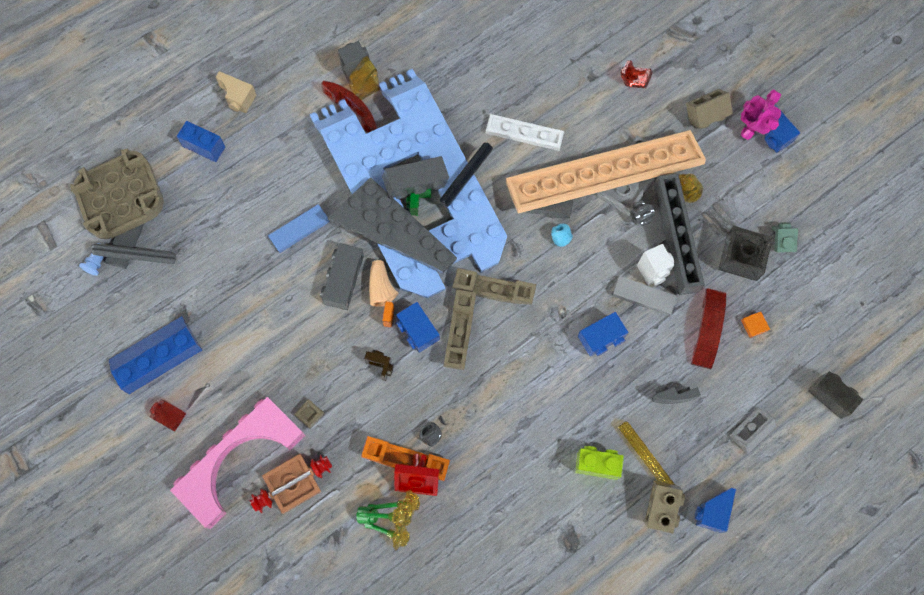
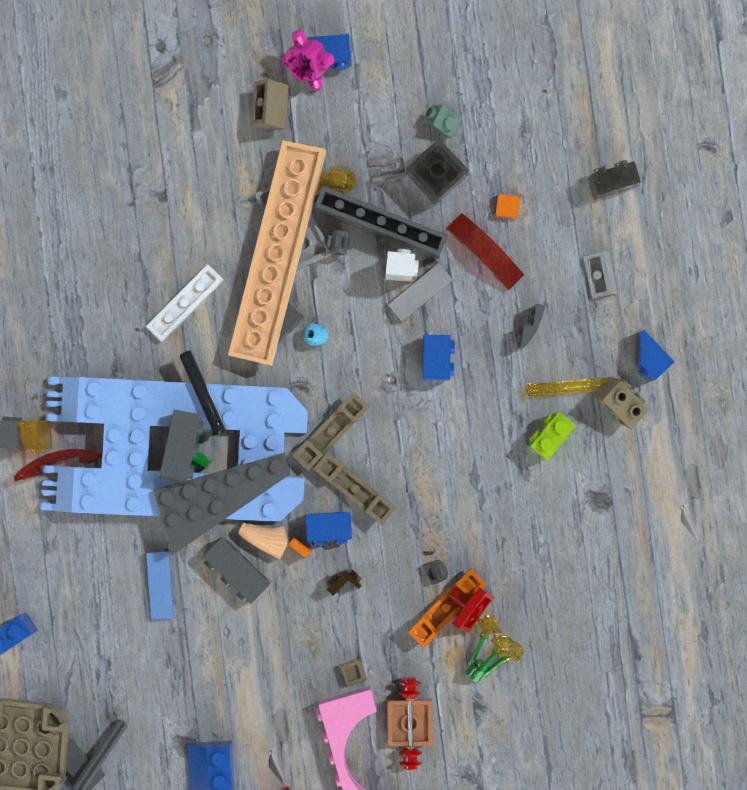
camera: 60 degrees left, 15 degrees up
(635, 76) = (189, 153): clear red bracket -> none

